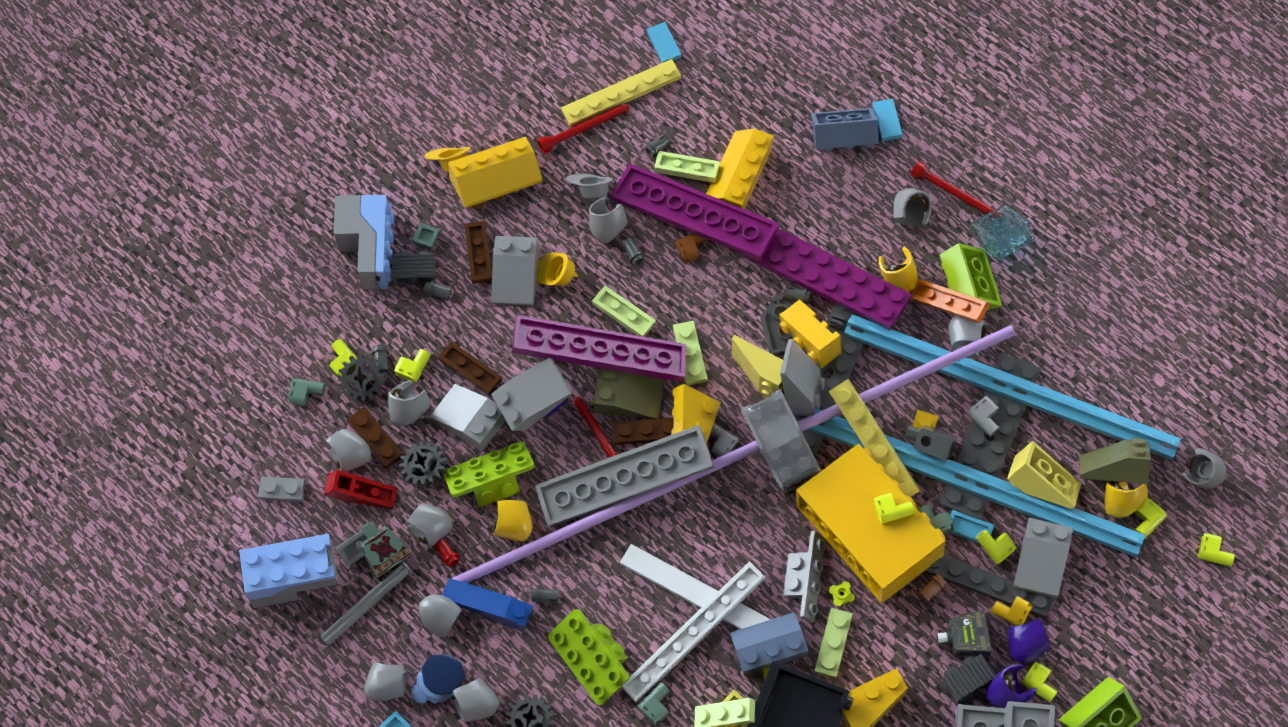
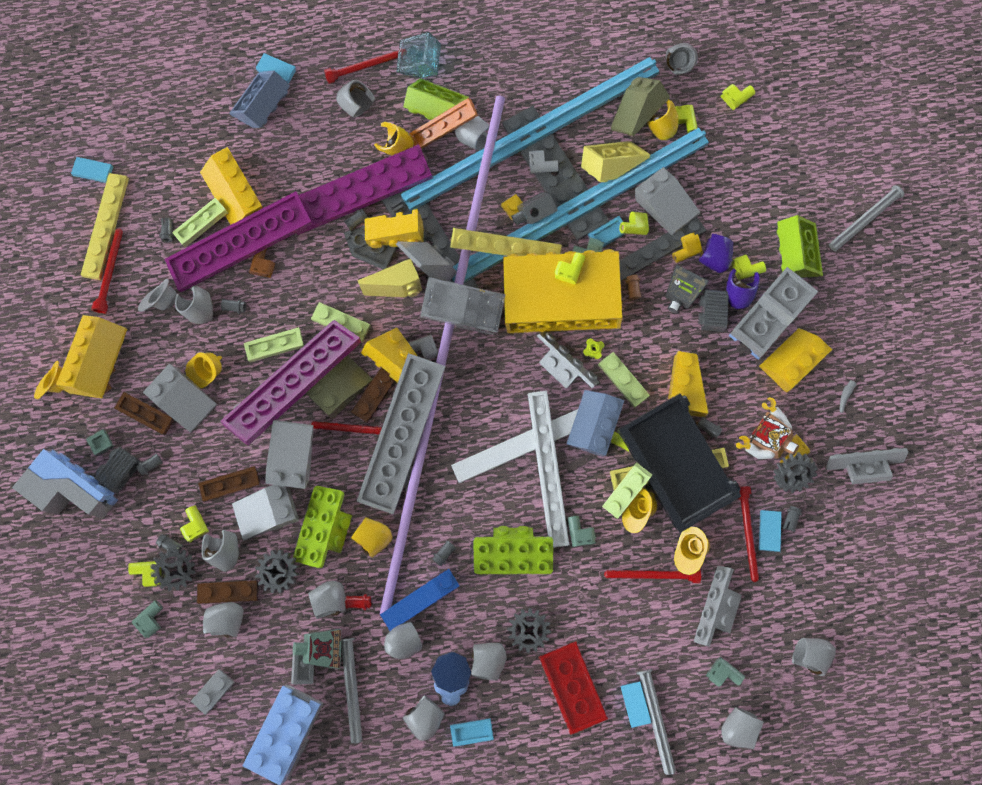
camera: 55 degrees left, 10 degrees up
(359, 490) = (260, 633): red slope -> none

